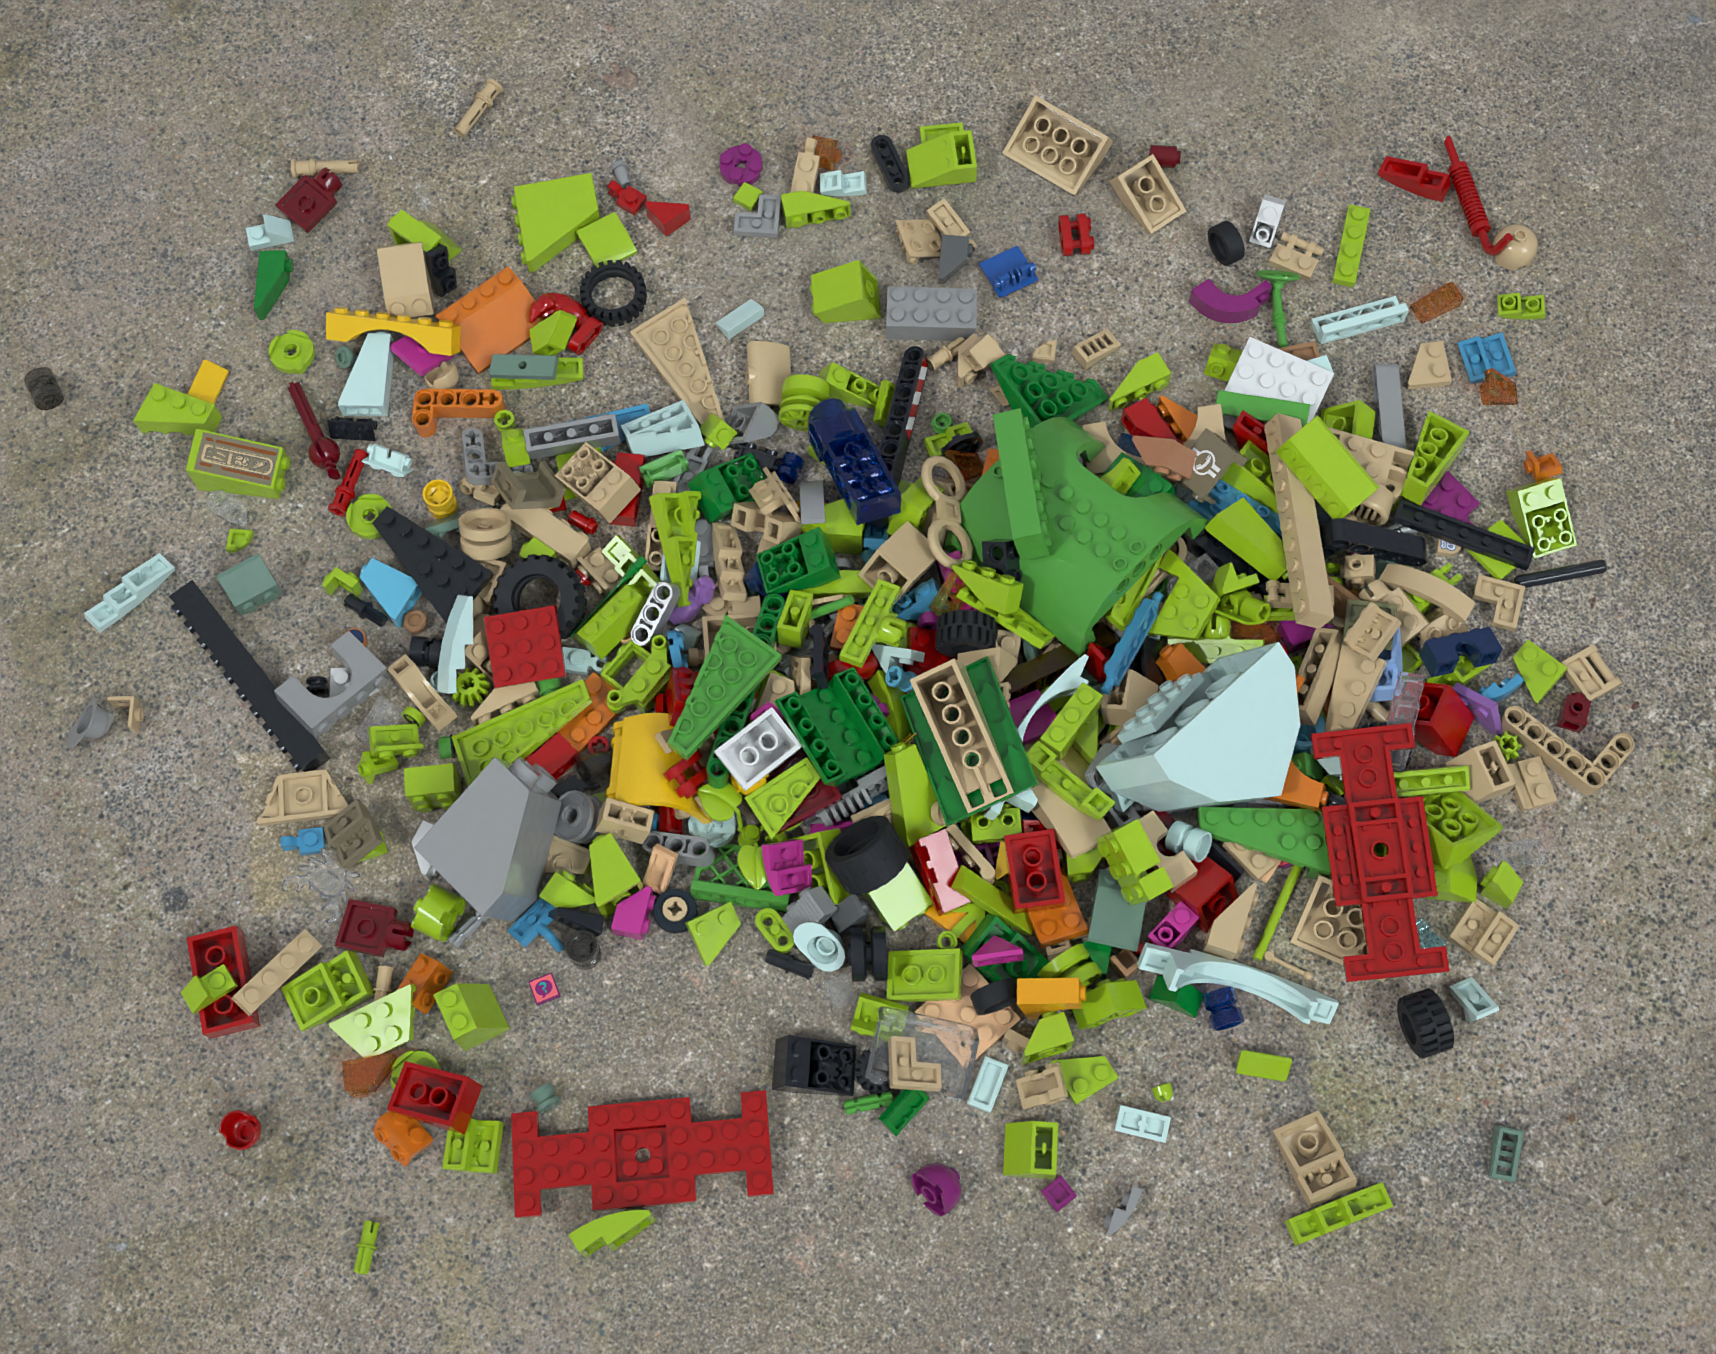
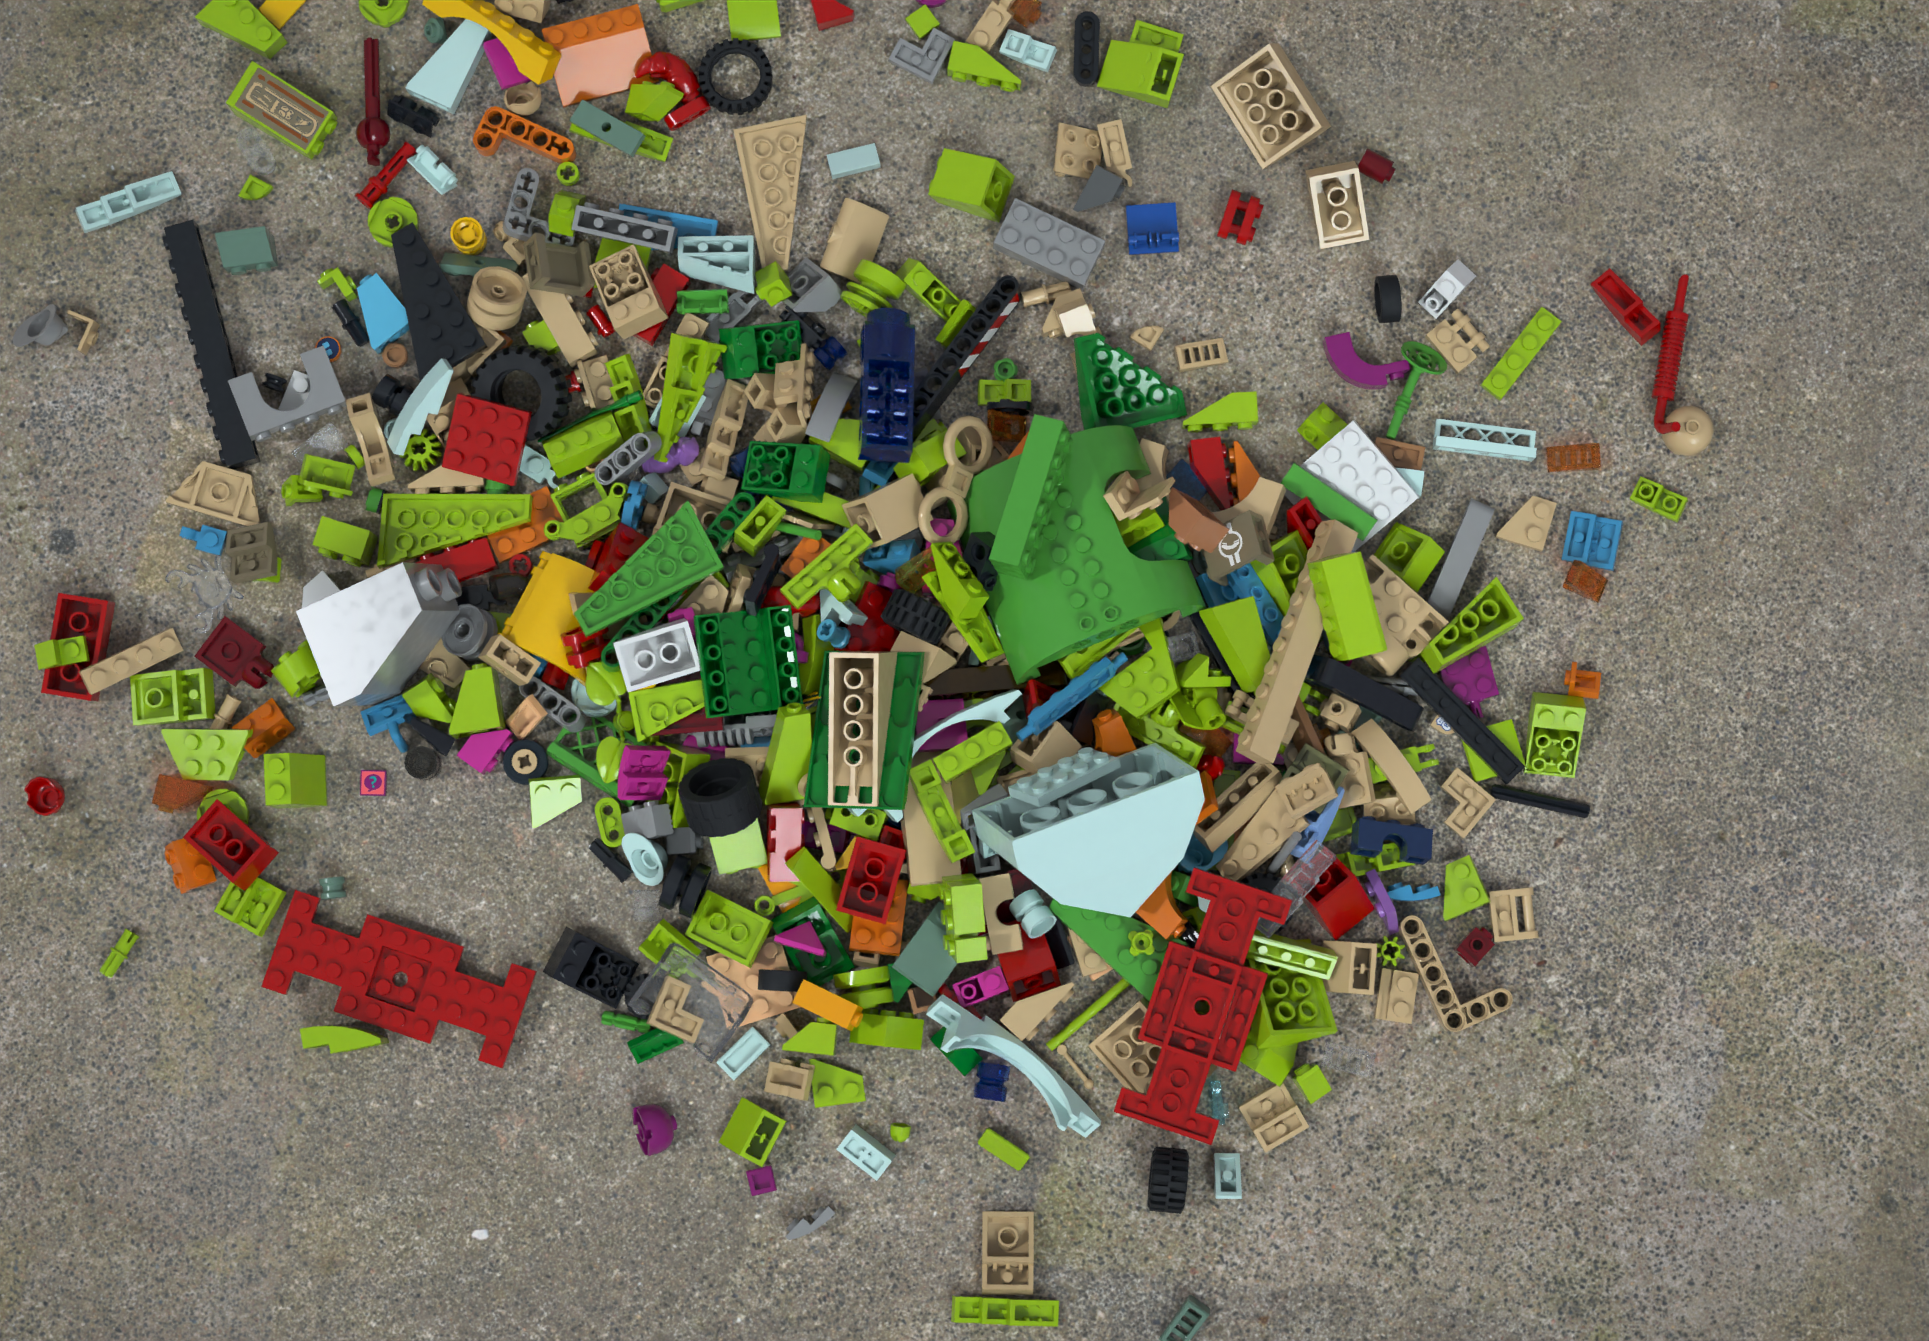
camera: 20 degrees right, 15 degrees up
(1095, 455) = (1127, 499): none -> tan bracket
(1301, 818) = (1146, 937): none -> lime plate
(1377, 696) = (1284, 853): none -> light grey bar

